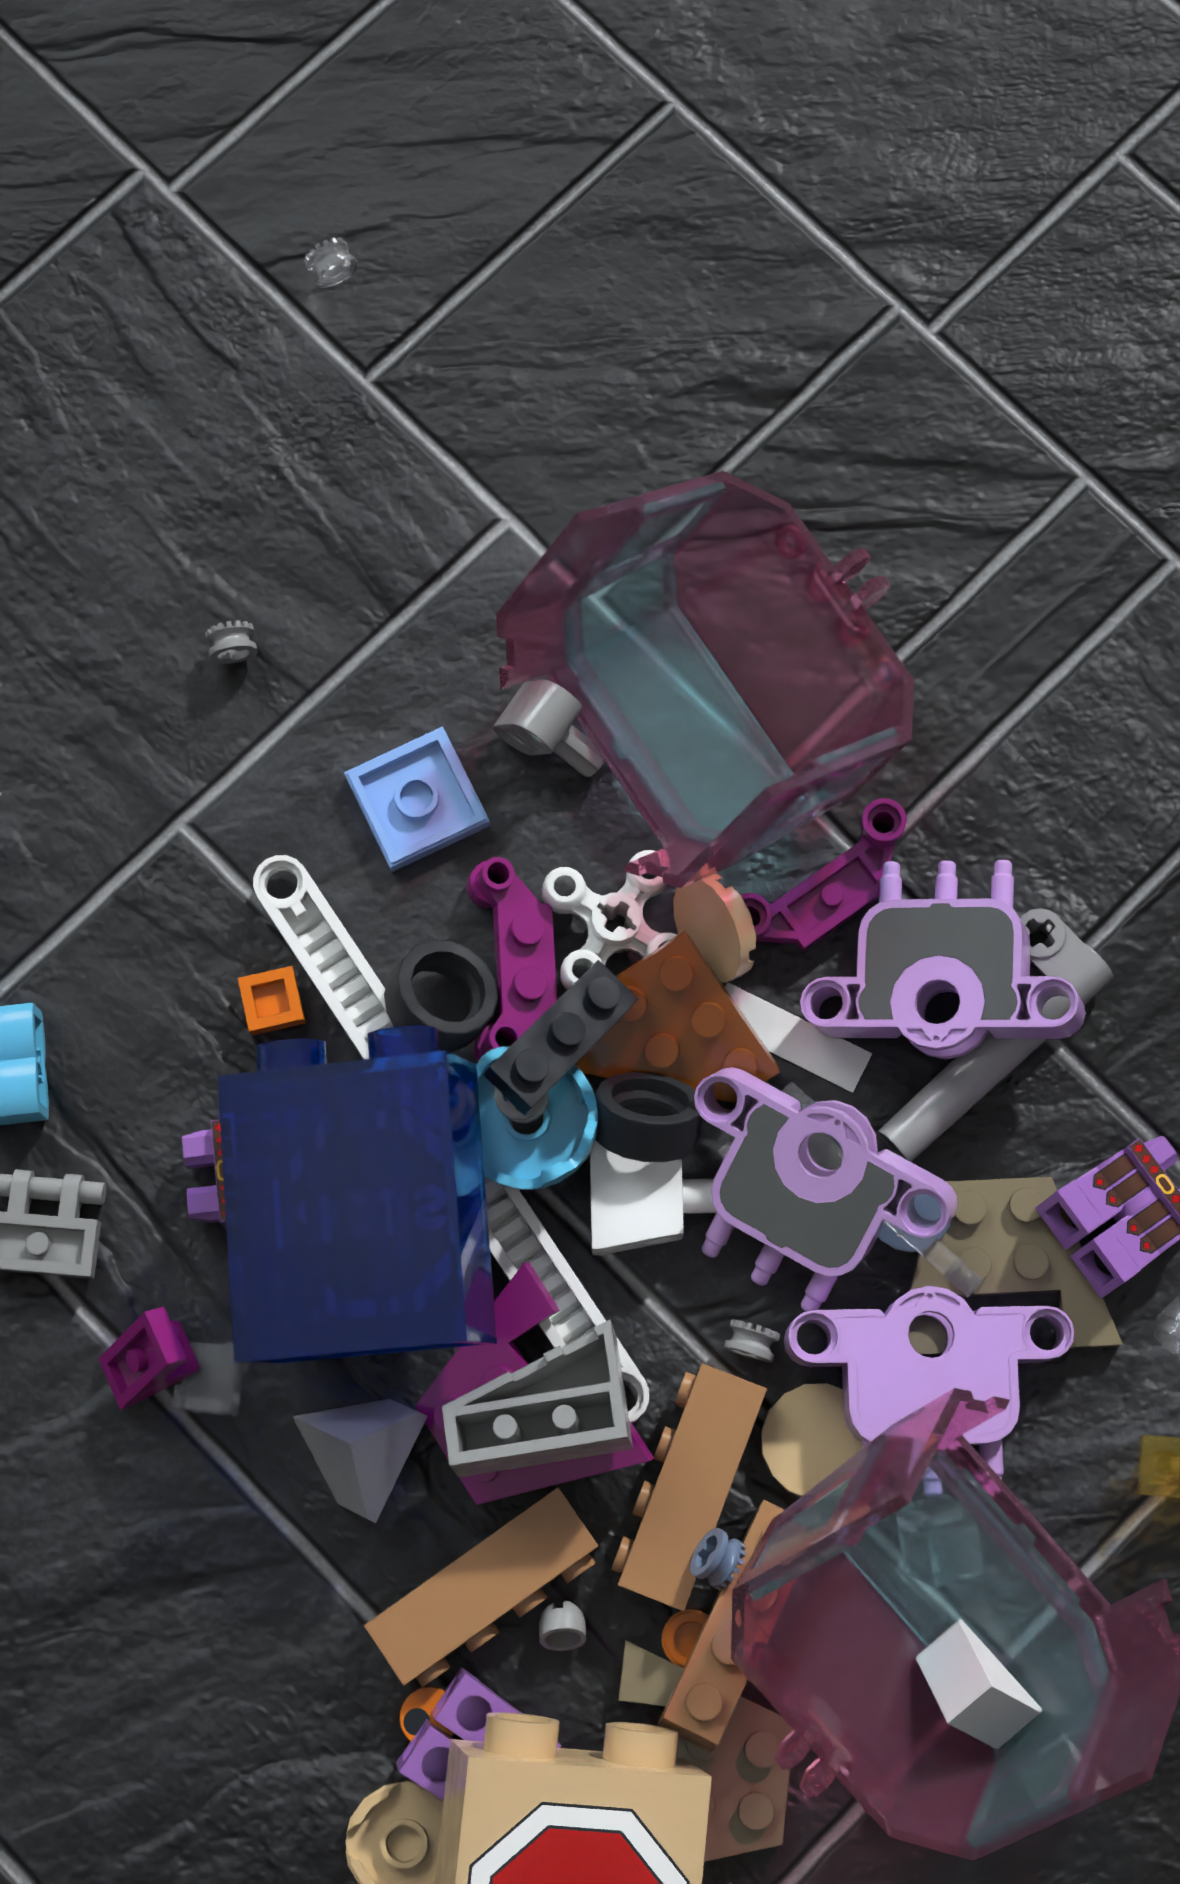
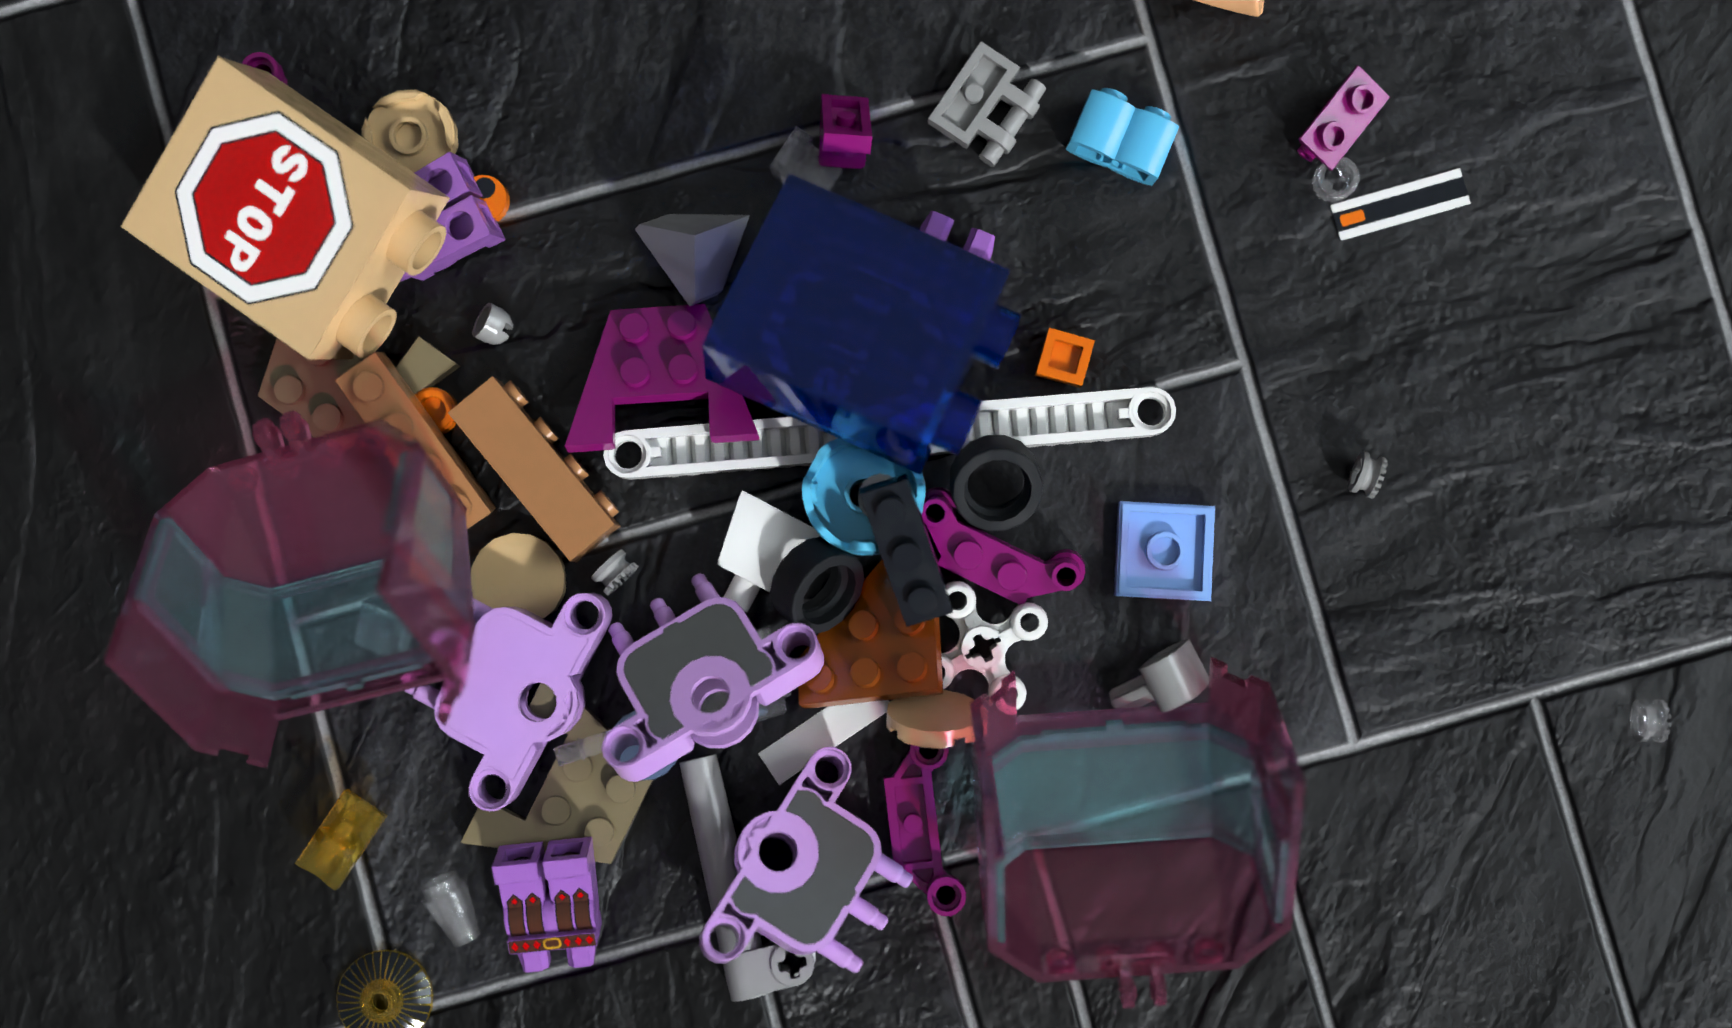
camera: 115 degrees right, 10 degrees up
(481, 1587) = (548, 282): medium nougat brick -> none
(545, 1412) = (635, 386): light grey wedge -> none
(717, 1558) = (466, 454): sand blue bush -> none
(975, 1687) = (278, 588): white slope -> none

